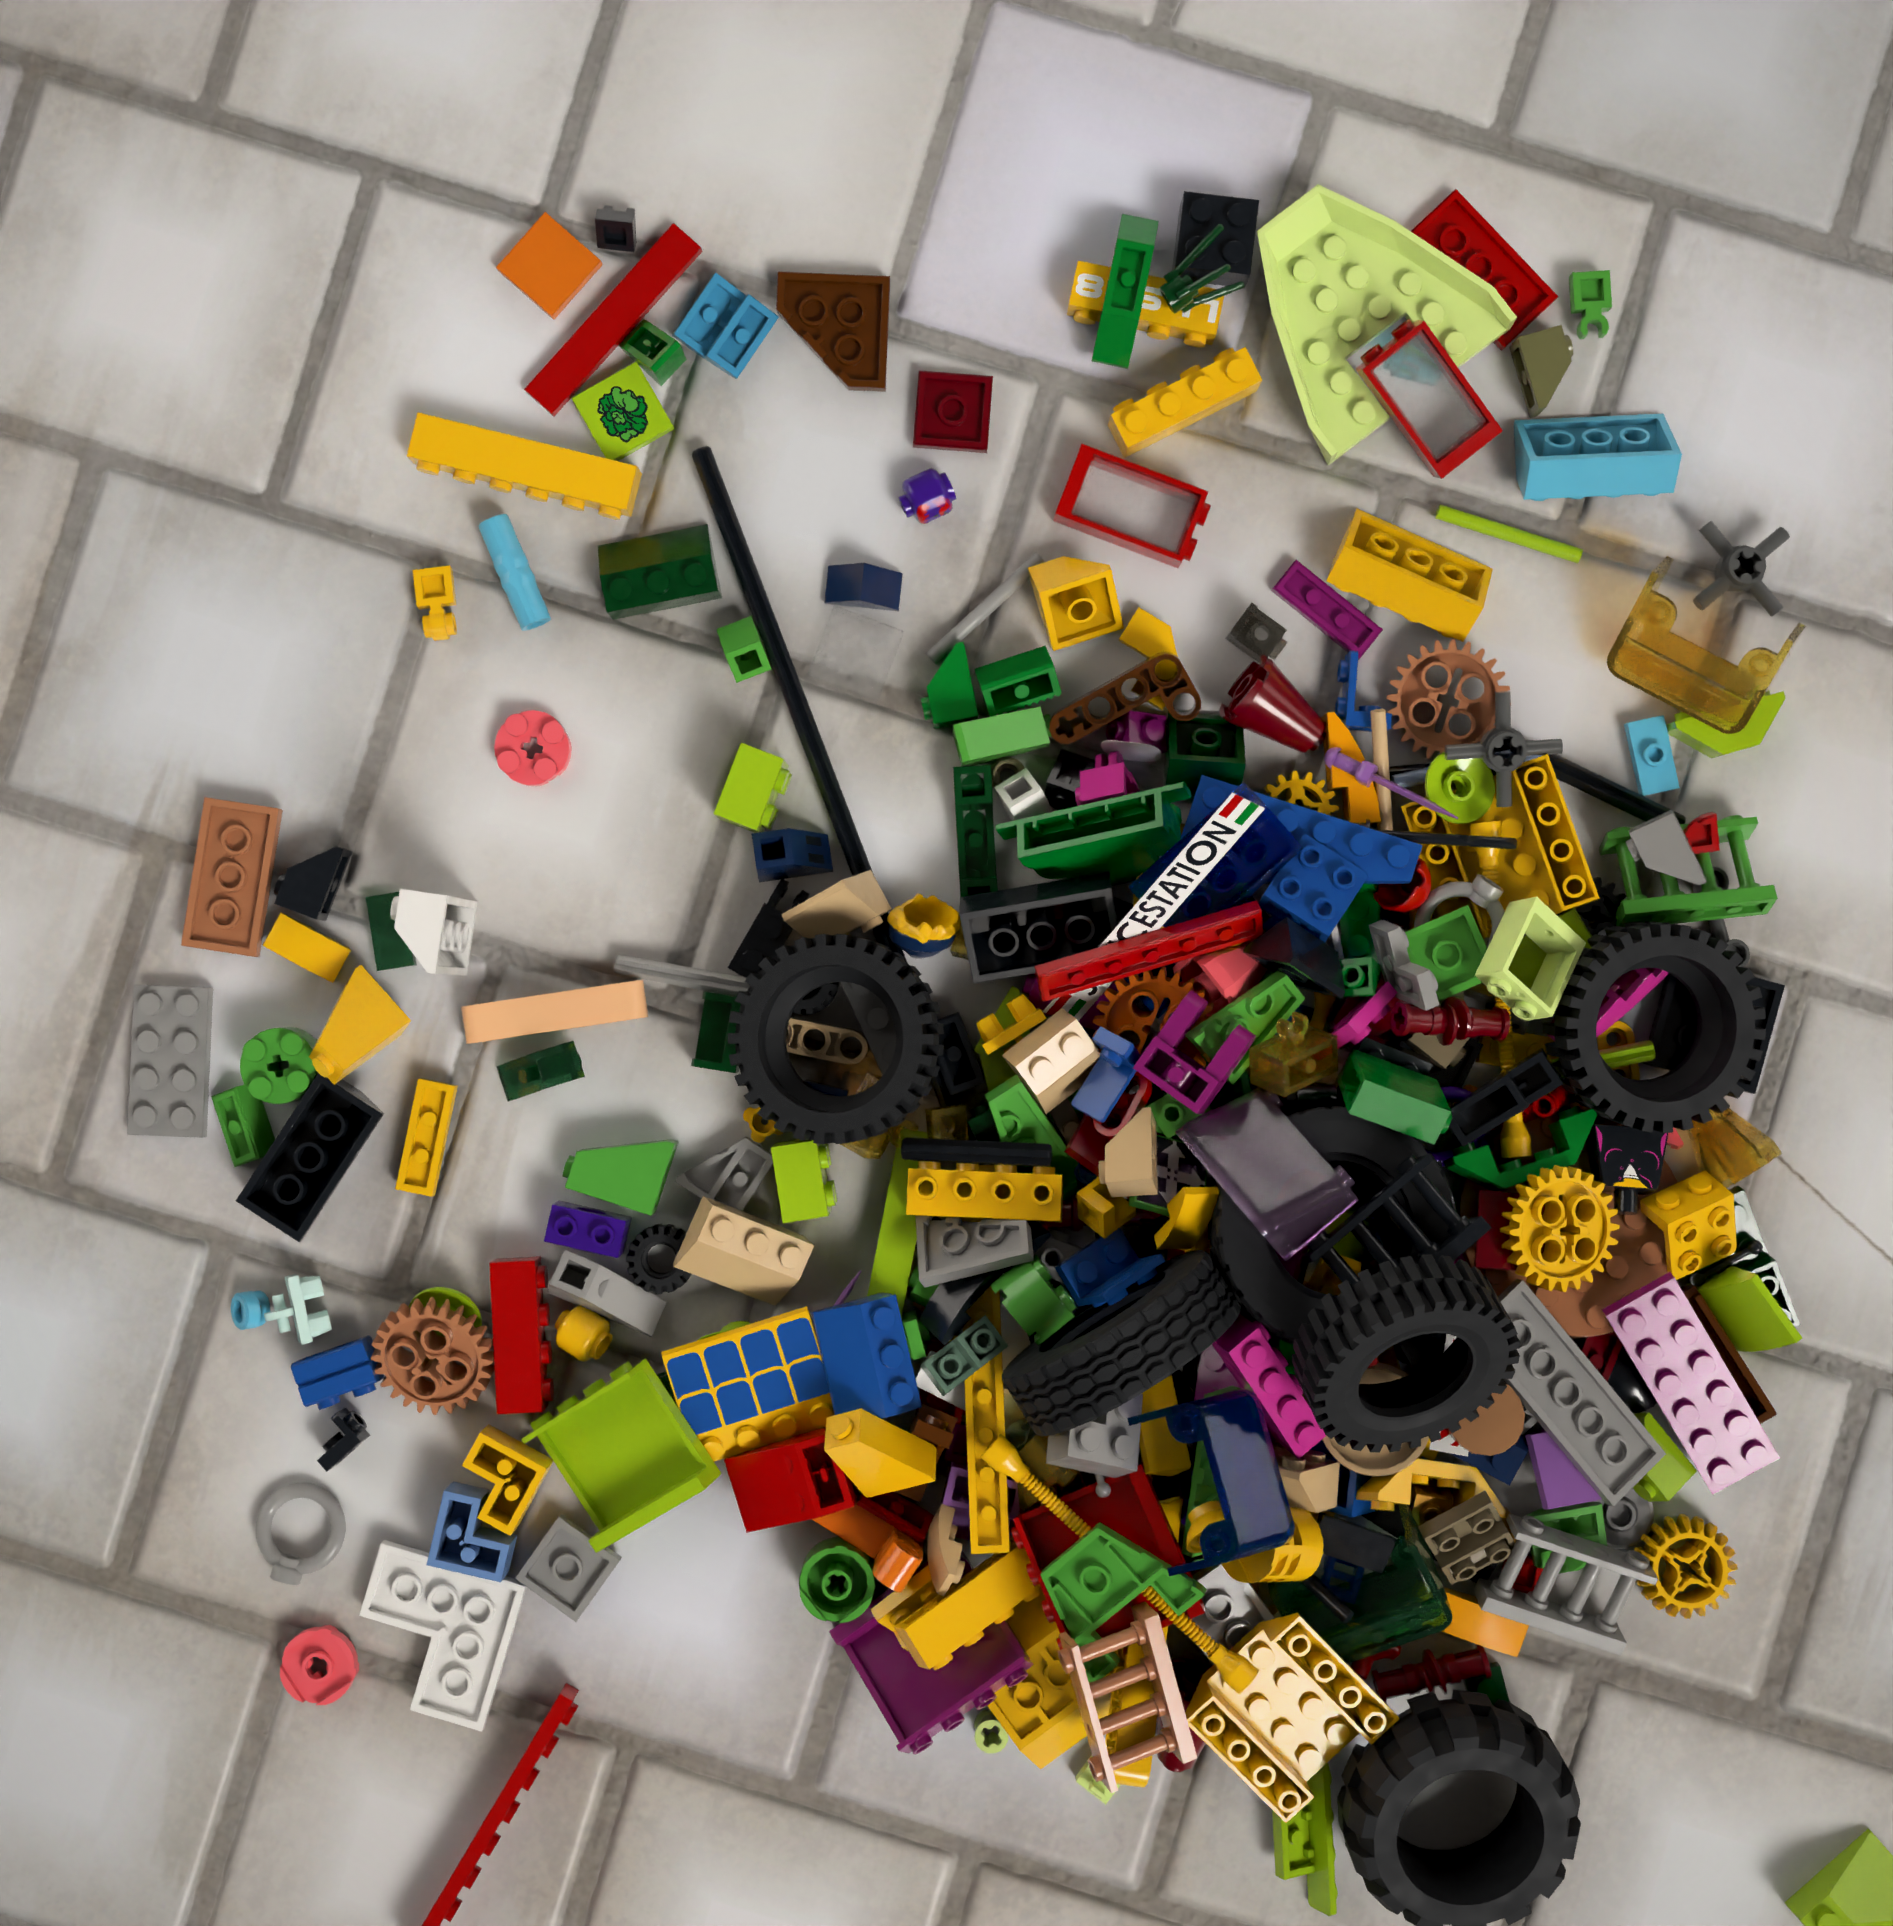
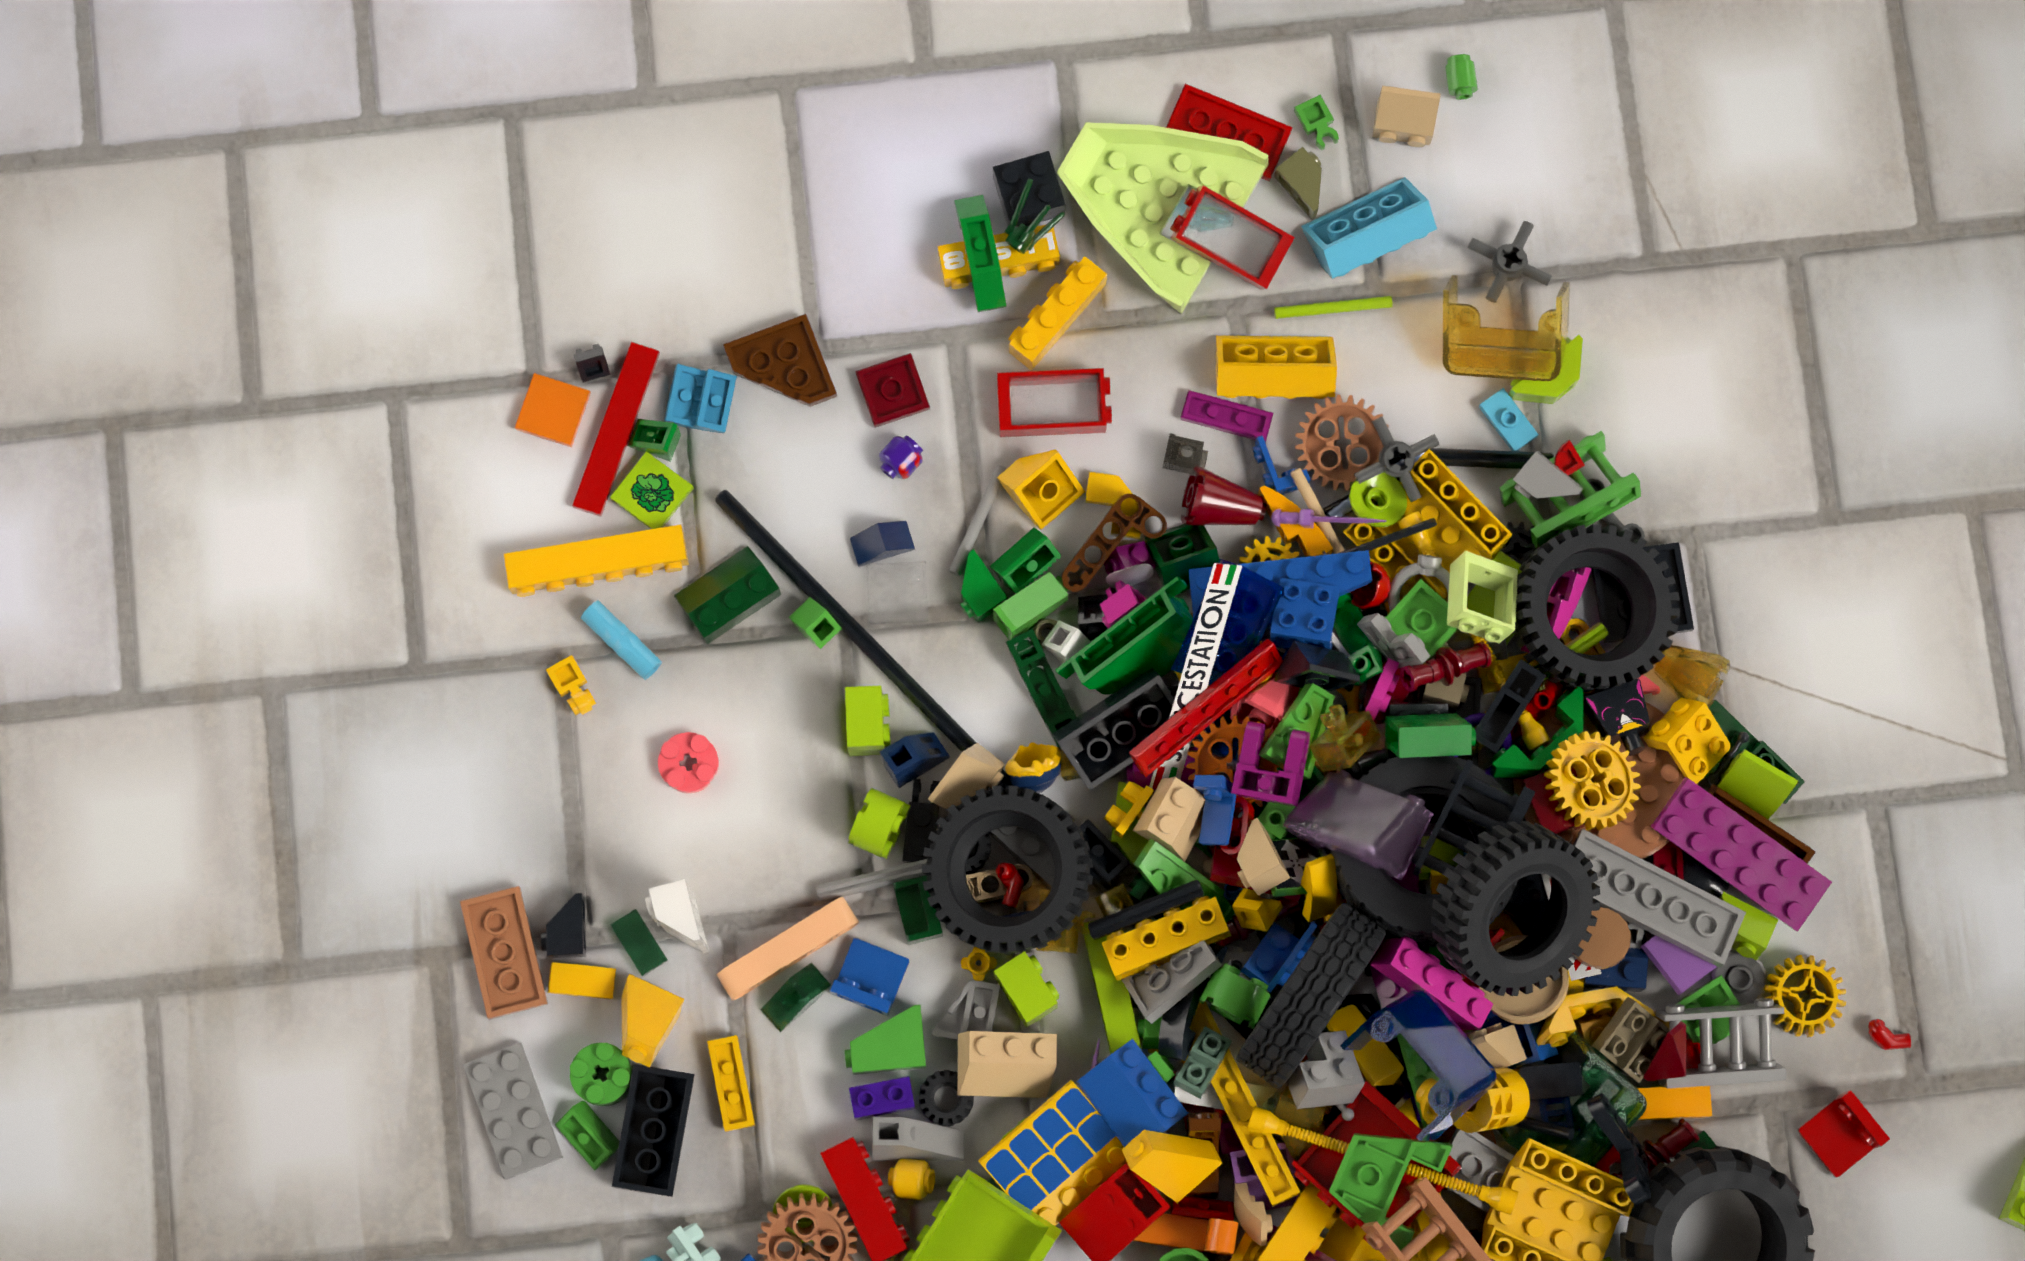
camera: 20 degrees left, 10 degrees down
(633, 1085) = (870, 976): none -> blue bracket
(716, 915) = (878, 823): none -> lime brick
(839, 1051) = (1012, 881): none -> red arm
(1407, 1674) = (1632, 1155): none -> black beam
(1503, 1581) = (1671, 1056): none -> dark red slope
(1656, 1737) = (1843, 1133): none -> red bracket
(1700, 339) = (1405, 116): none -> tan slope
(1753, 1651) = (1885, 1038): none -> red arm
(1785, 320) = (1461, 76): none -> bright green brick

